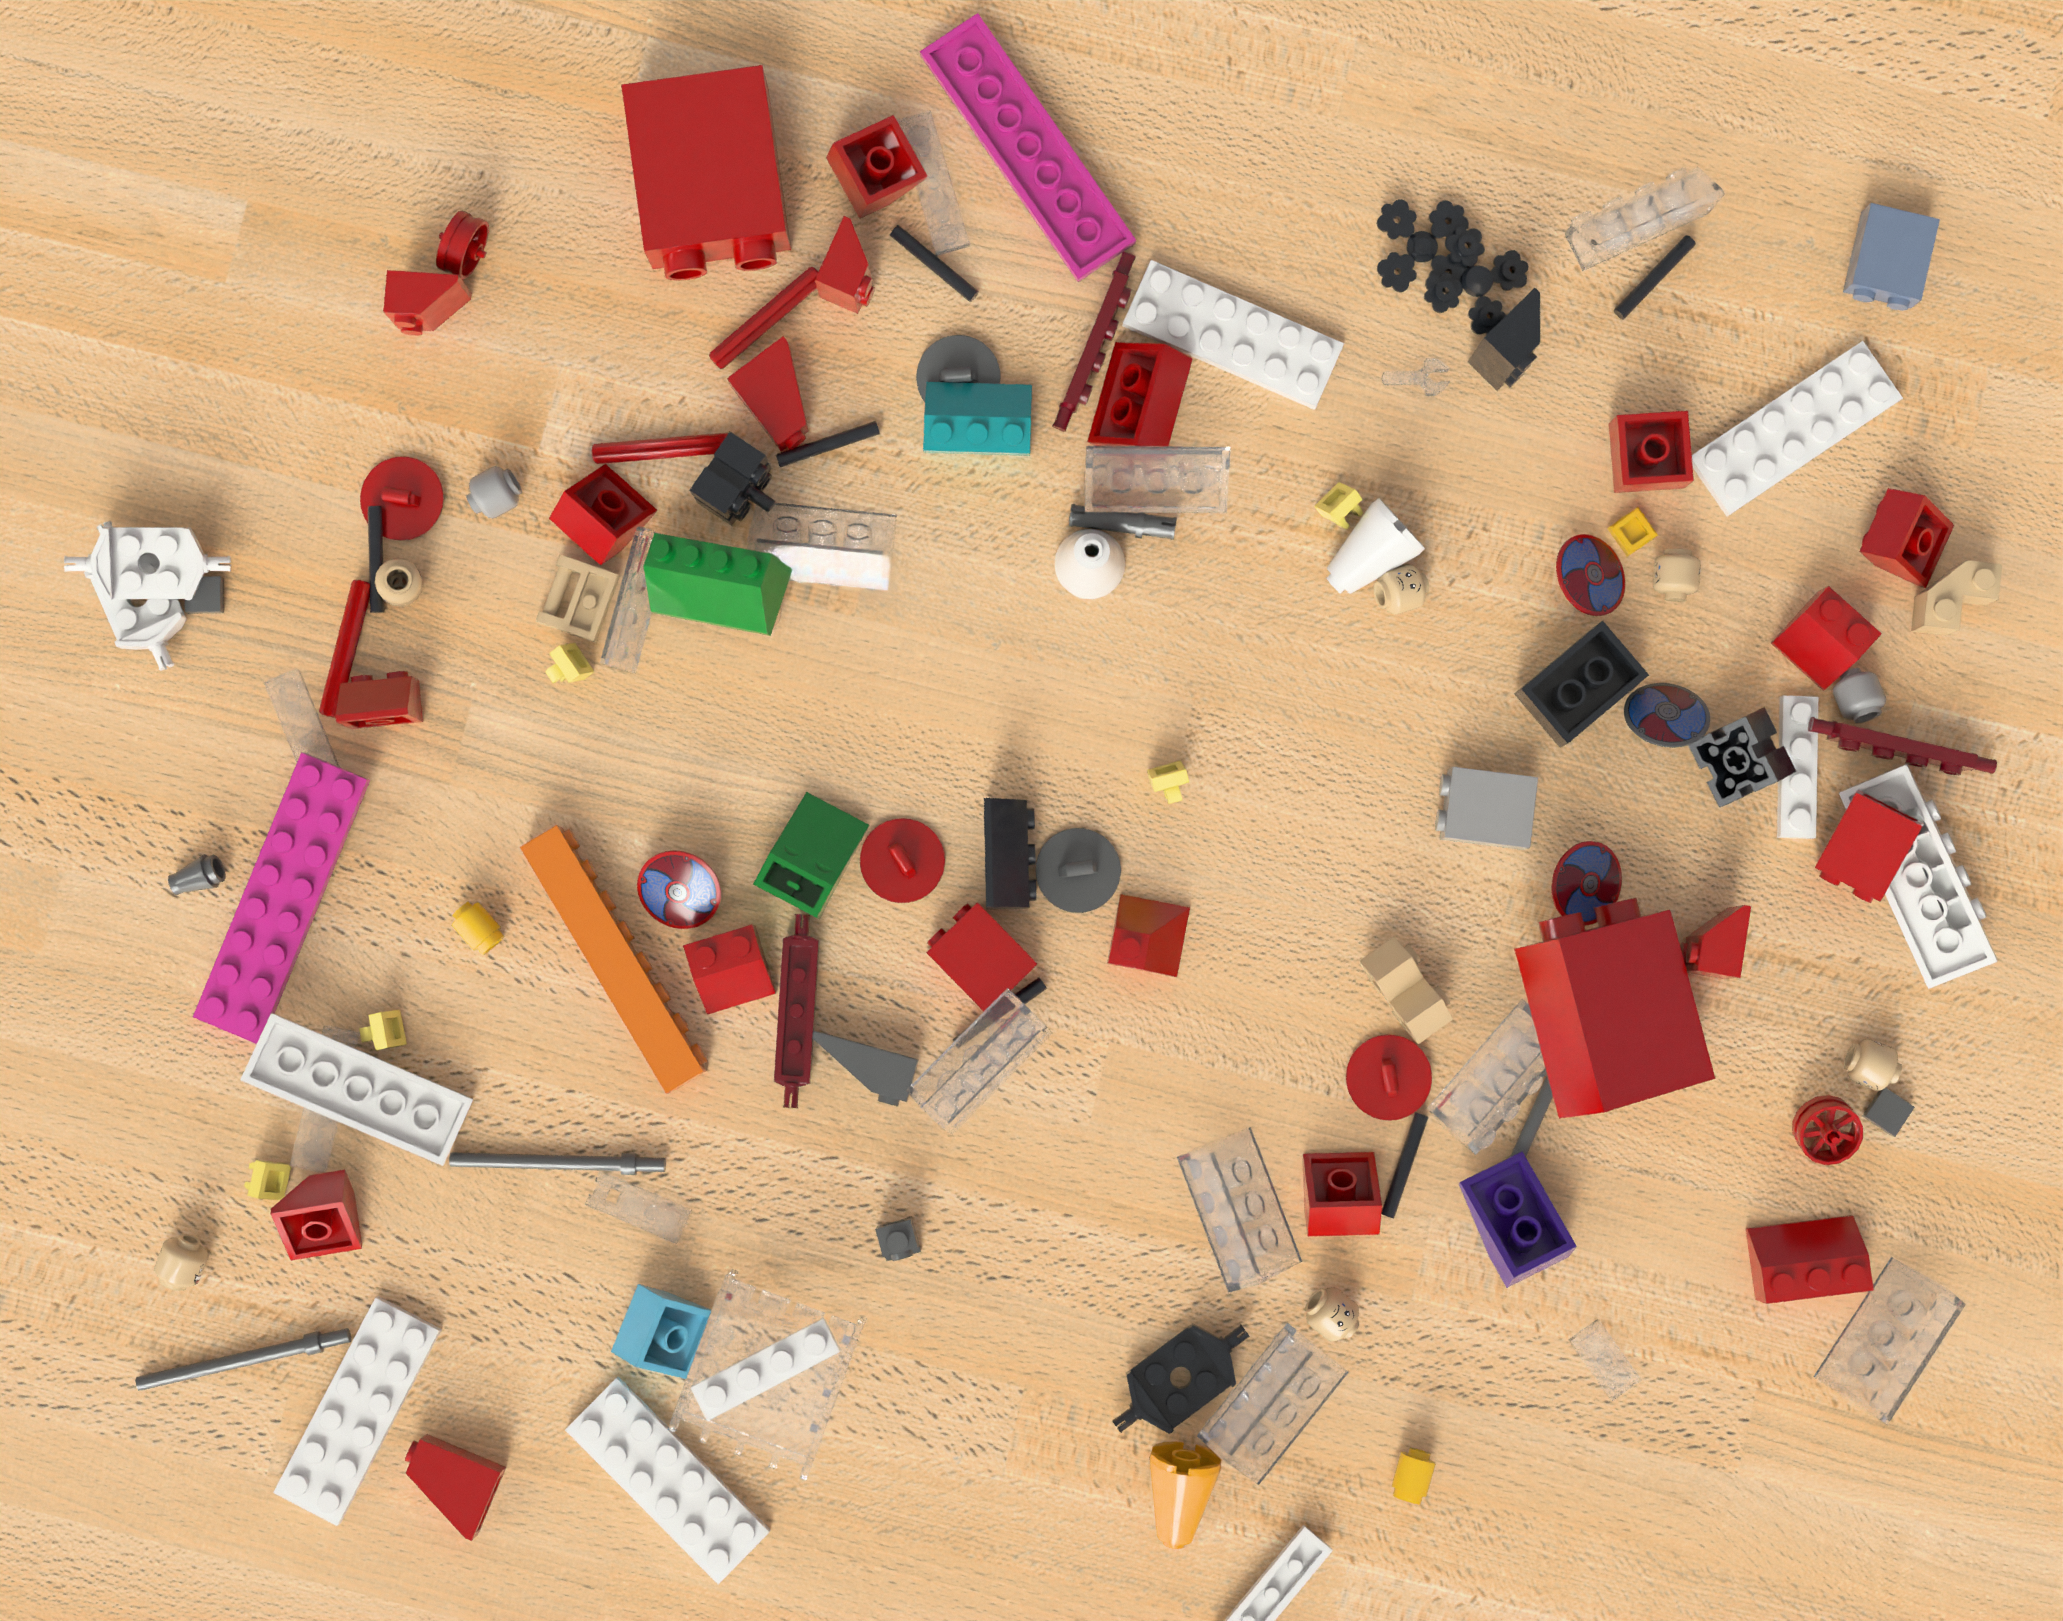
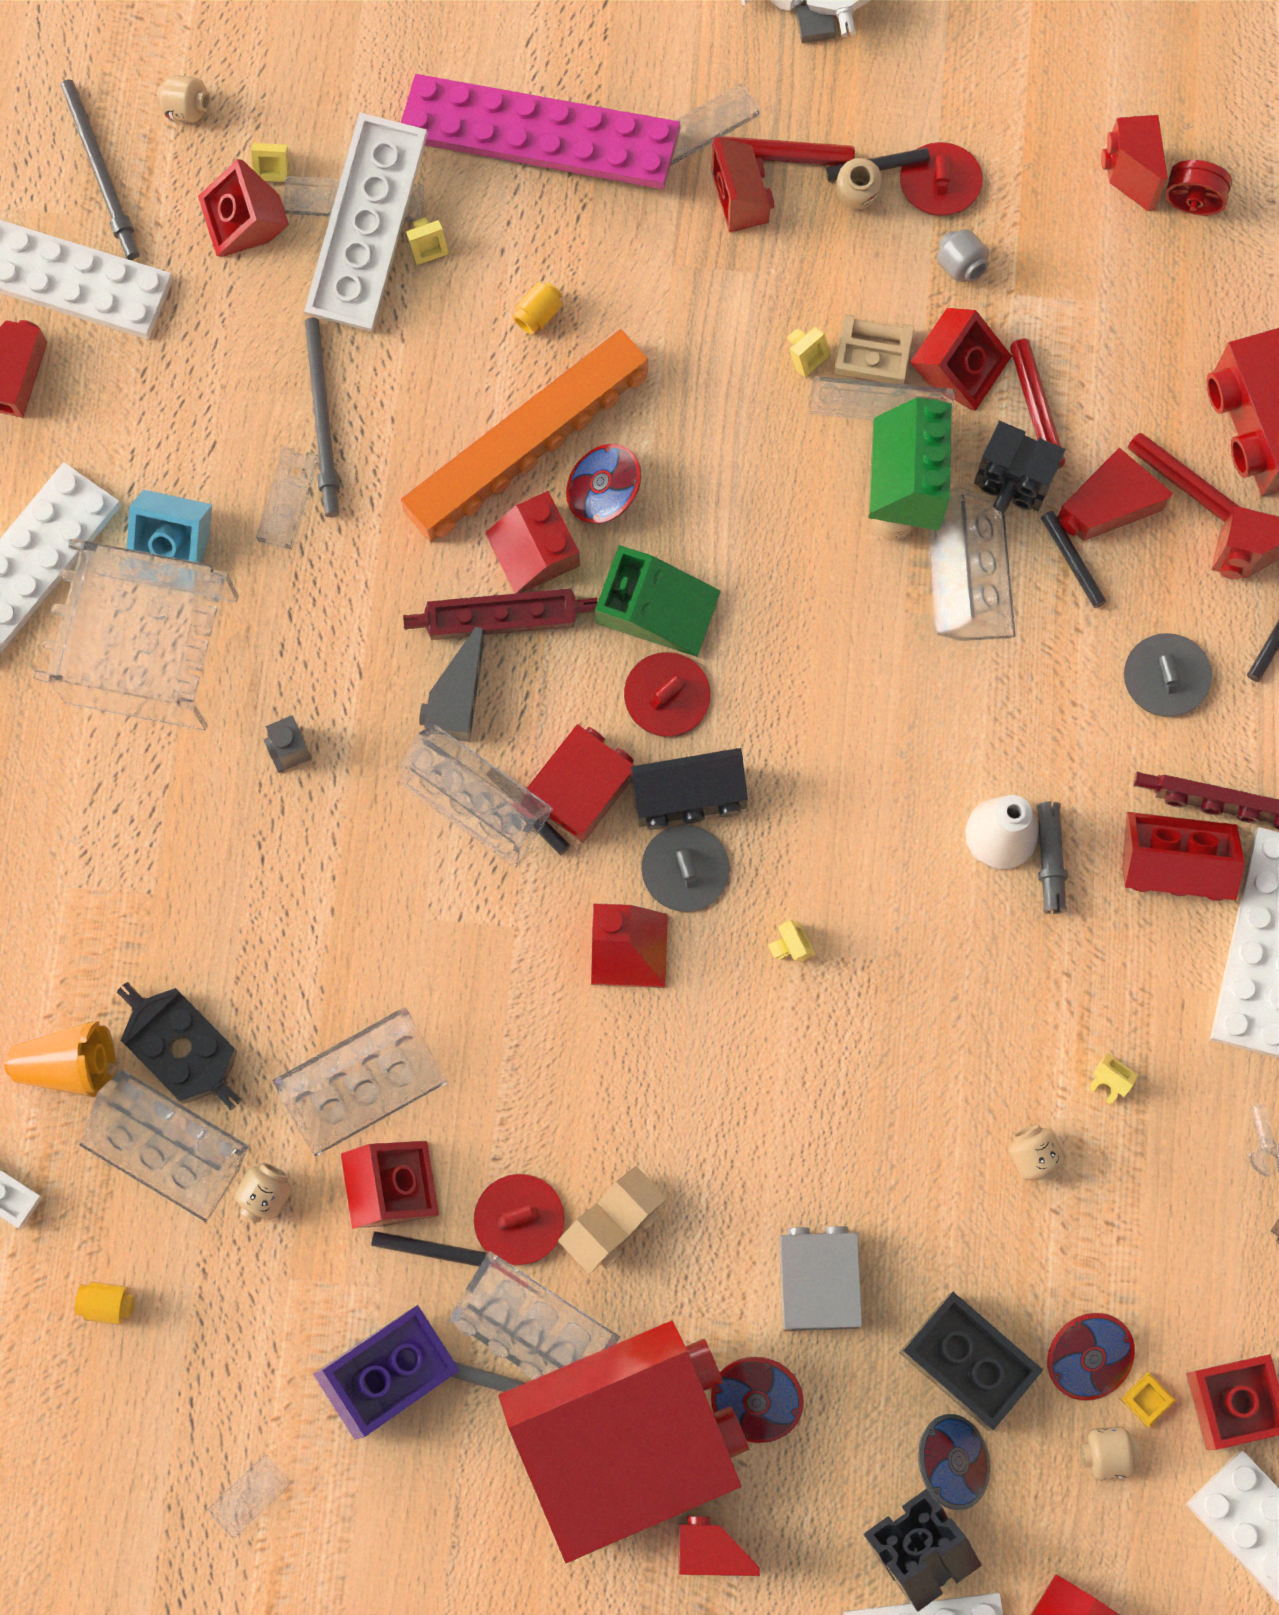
camera: 85 degrees right, 10 degrees down
(200, 874) = (550, 59): dark grey cone -> none
(765, 1369) = (138, 617): white plate -> none
(977, 418) = (1128, 696): teal slope -> none
(1156, 479) = (1102, 878): clear slope -> none
(1372, 549) = (1075, 1116): white cone -> none

